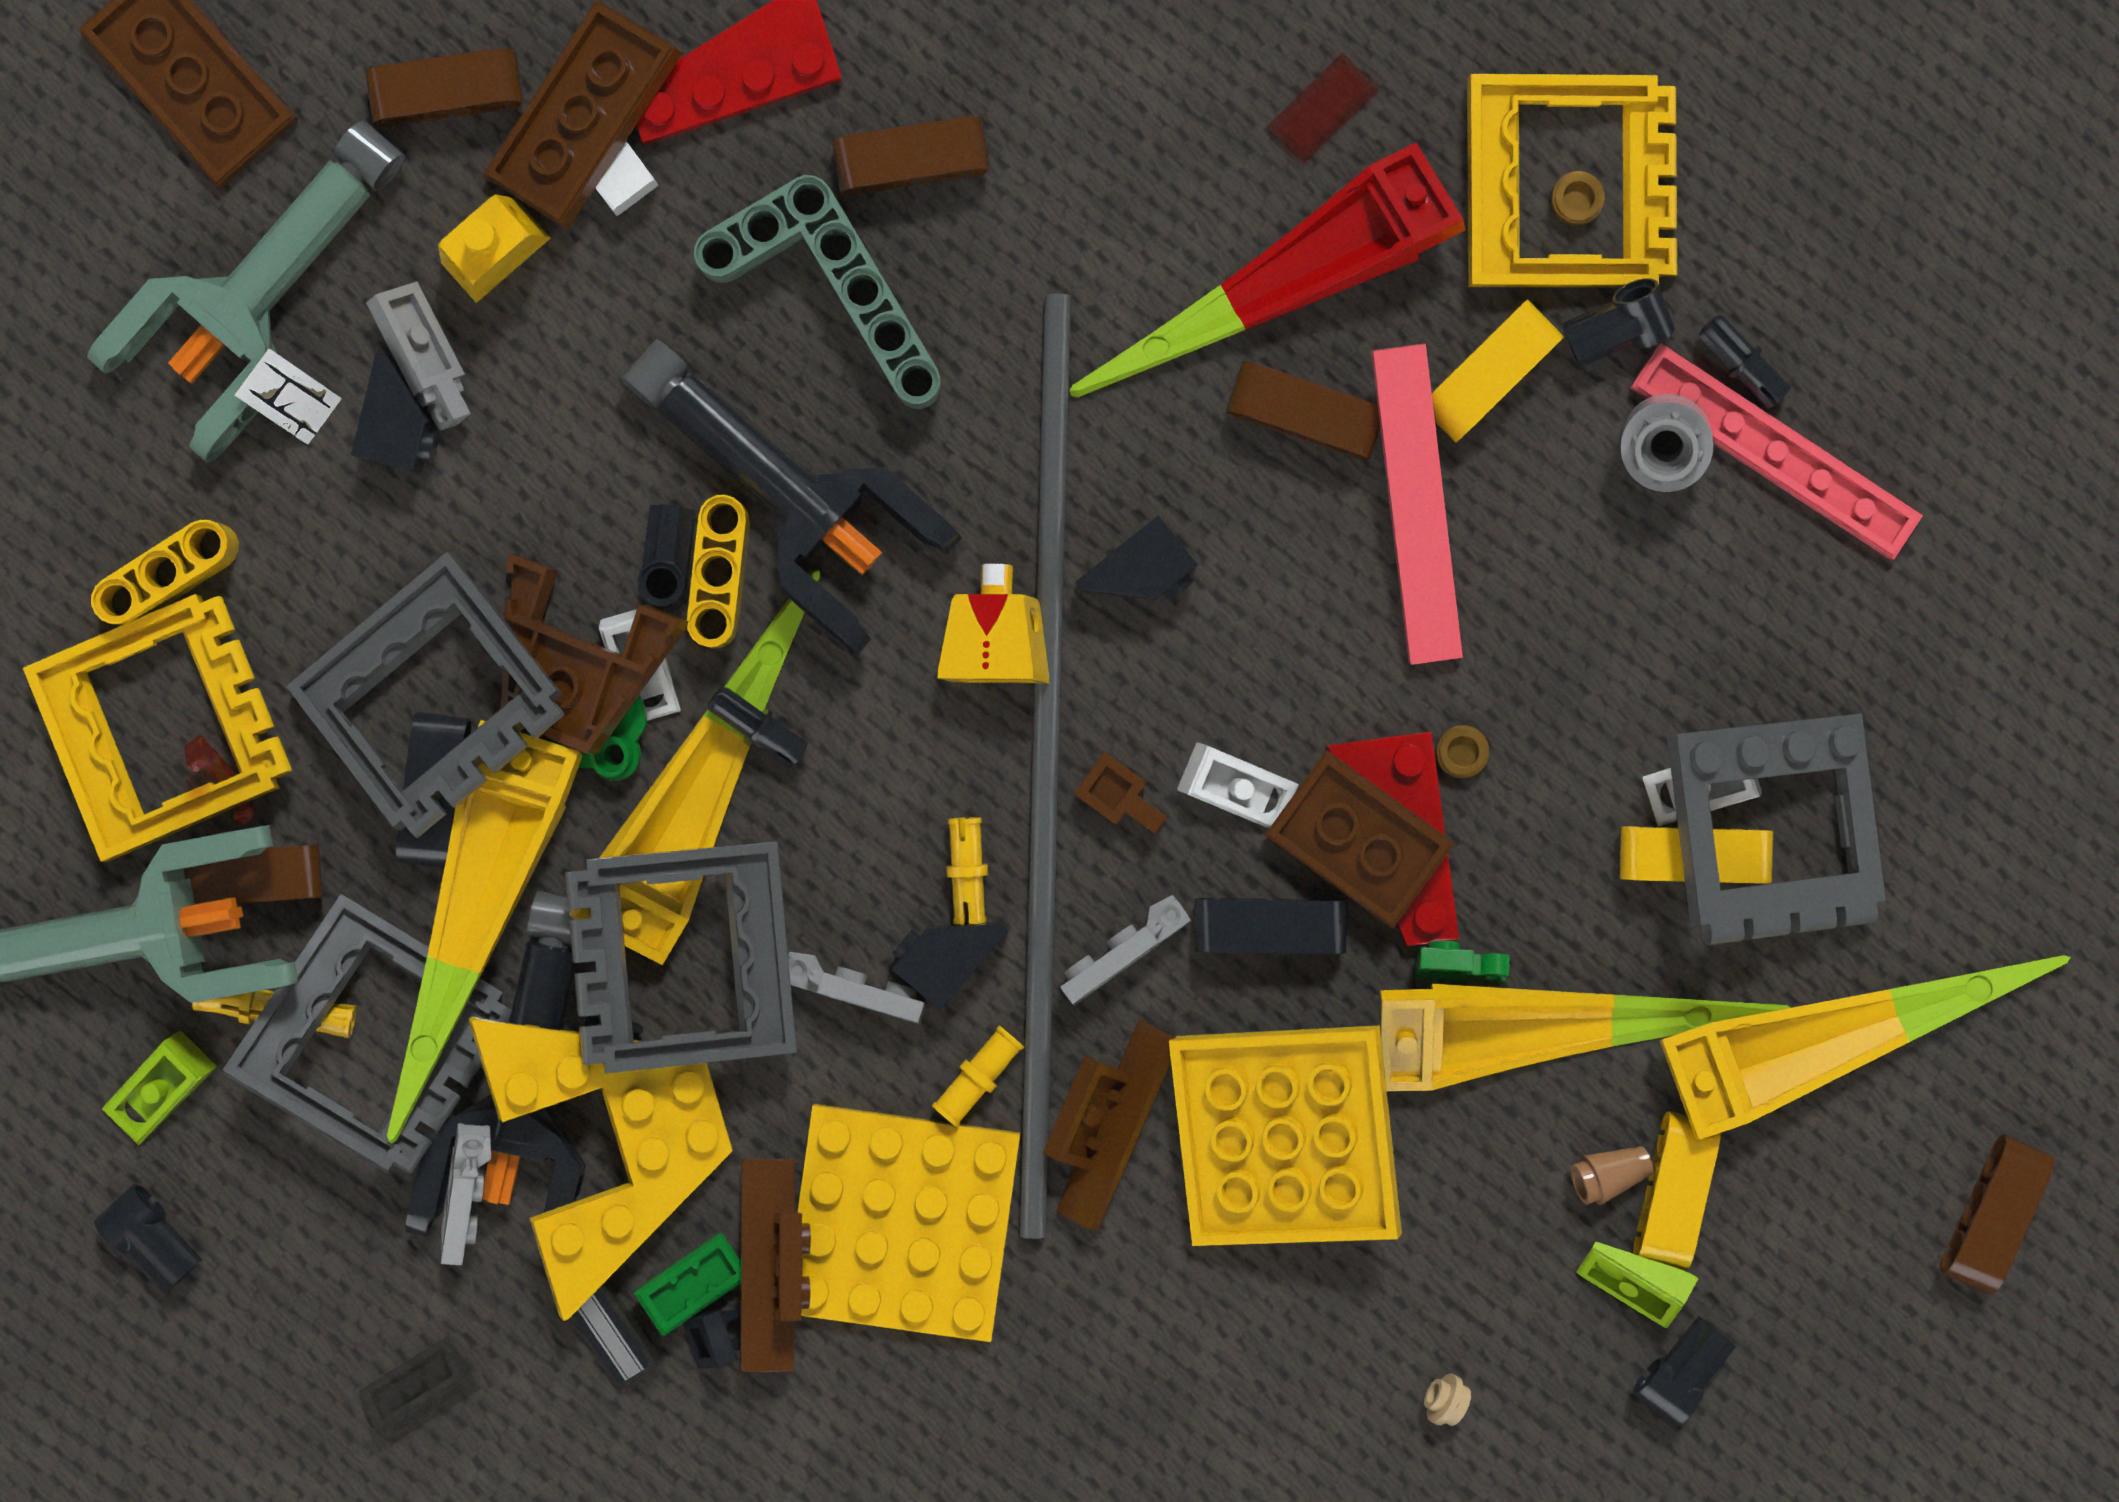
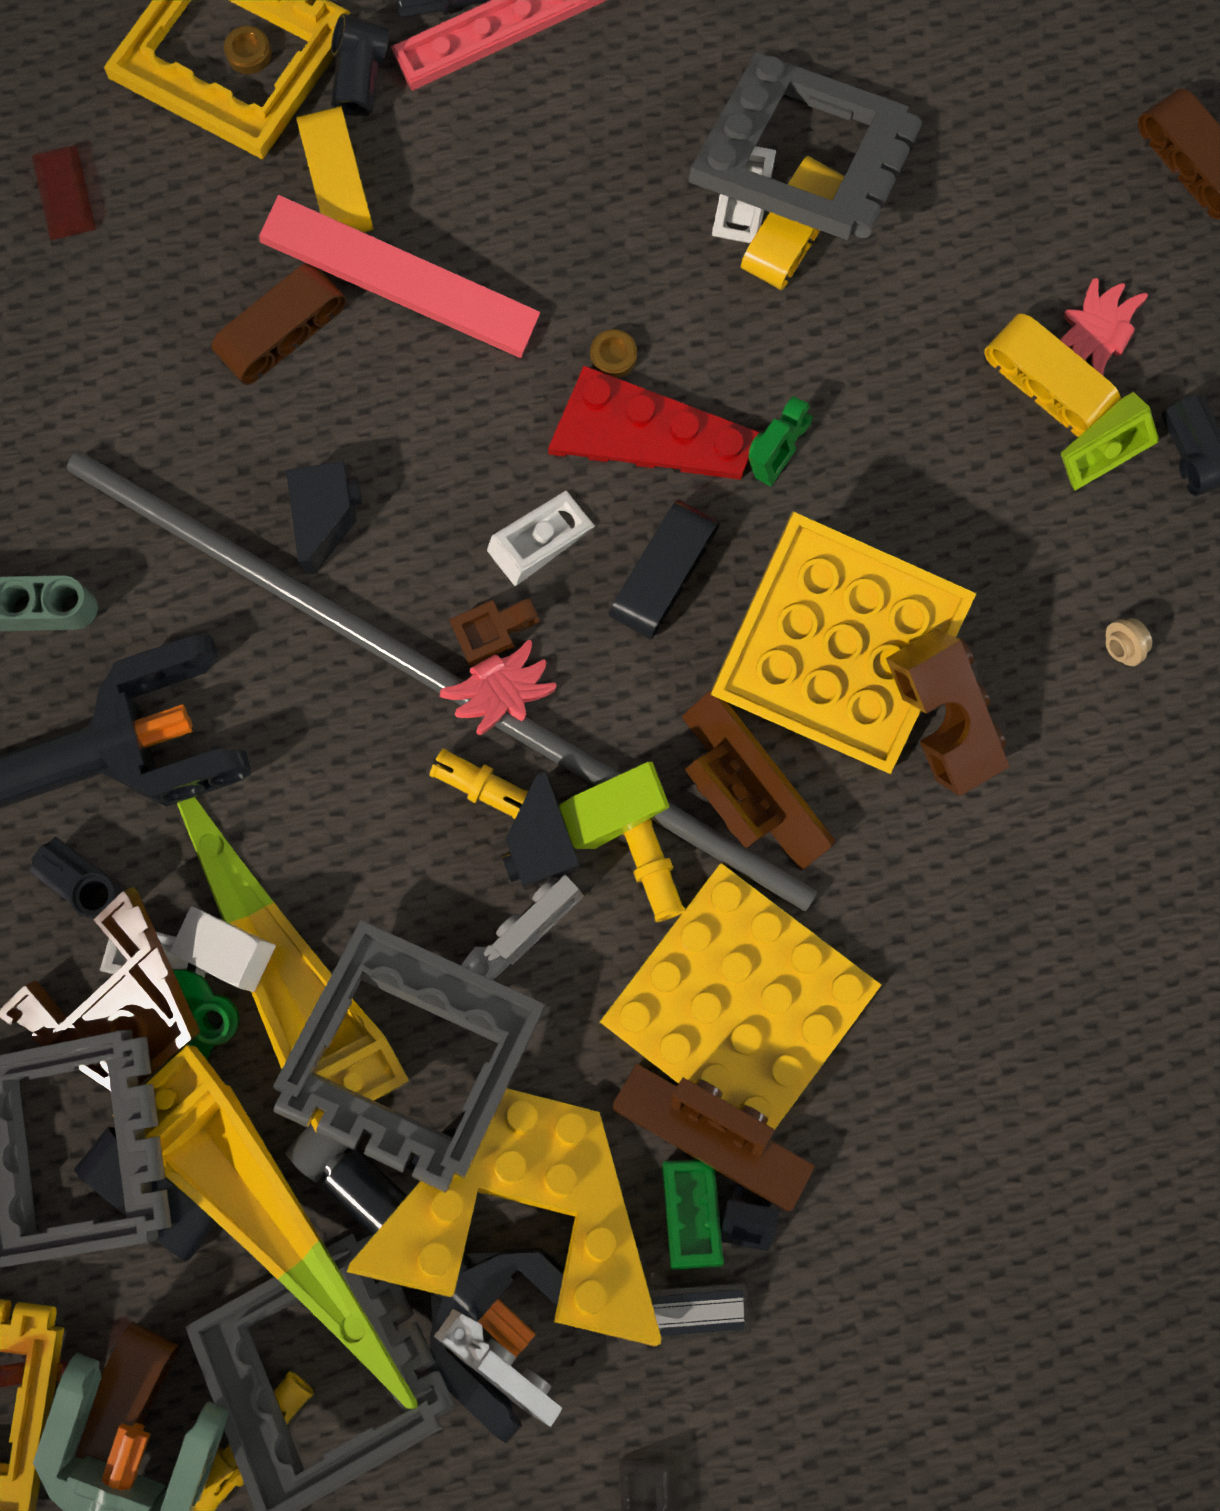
camera: 60 degrees left, 10 degrees down
(680, 729) = (222, 949): none -> white slope
(708, 547) = (95, 841): yellow beam -> none
(758, 727) = (260, 886): black axle -> none
(994, 634) = (303, 653): yellow torso -> none
(1013, 1010) = (613, 807): none -> lime slope
(1067, 837) = (500, 687): none -> coral piece
(1126, 948) = (617, 690): light grey hinge -> none
(1256, 1301) = (968, 743): none -> reddish brown arch
(1355, 236) = (169, 211): red plate -> none
(1359, 839) = (635, 460): reddish brown tile -> none
(1476, 1031) = (841, 452): yellow plate -> none
(1610, 1173) = (1010, 420): medium nougat cone -> none
(1670, 471) = (469, 48): light grey piece -> none
(1757, 1210) = (1101, 326): none -> coral piece
(1768, 1059) = (985, 256): yellow plate -> none

